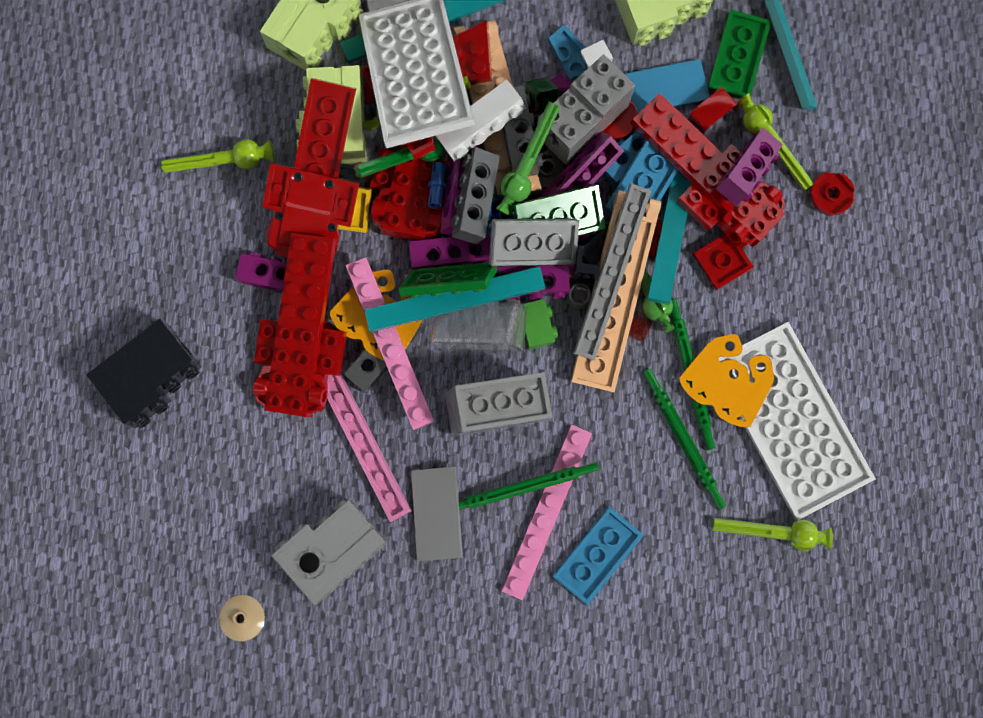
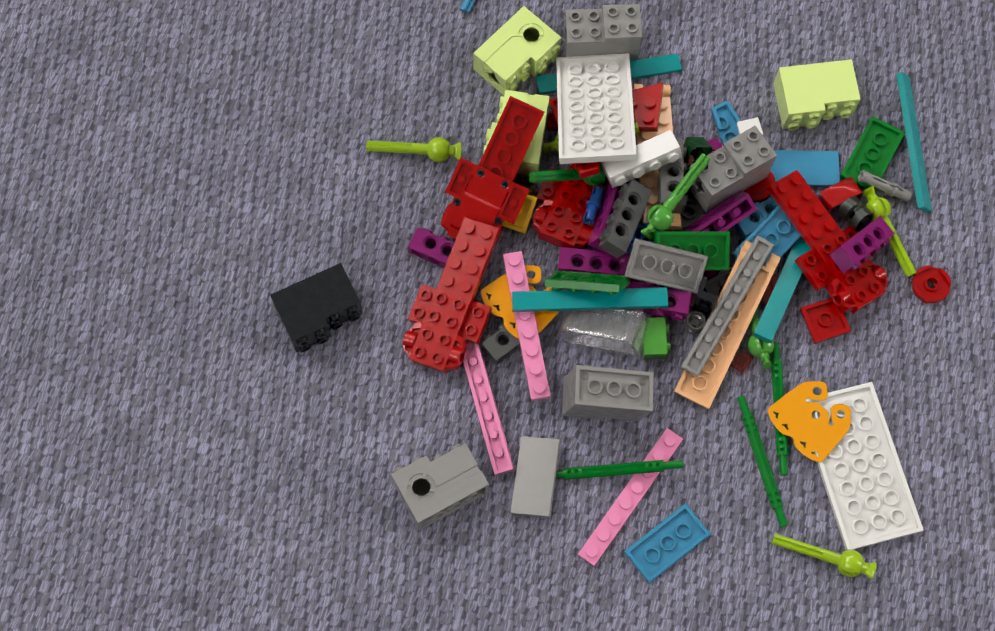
camera: 15 degrees right, 10 degrees down
(252, 613) = (353, 537): tan dish -> none
(734, 130) = (852, 211): none -> pearl dark grey wheel
(768, 91) = (892, 189): none -> light grey pin

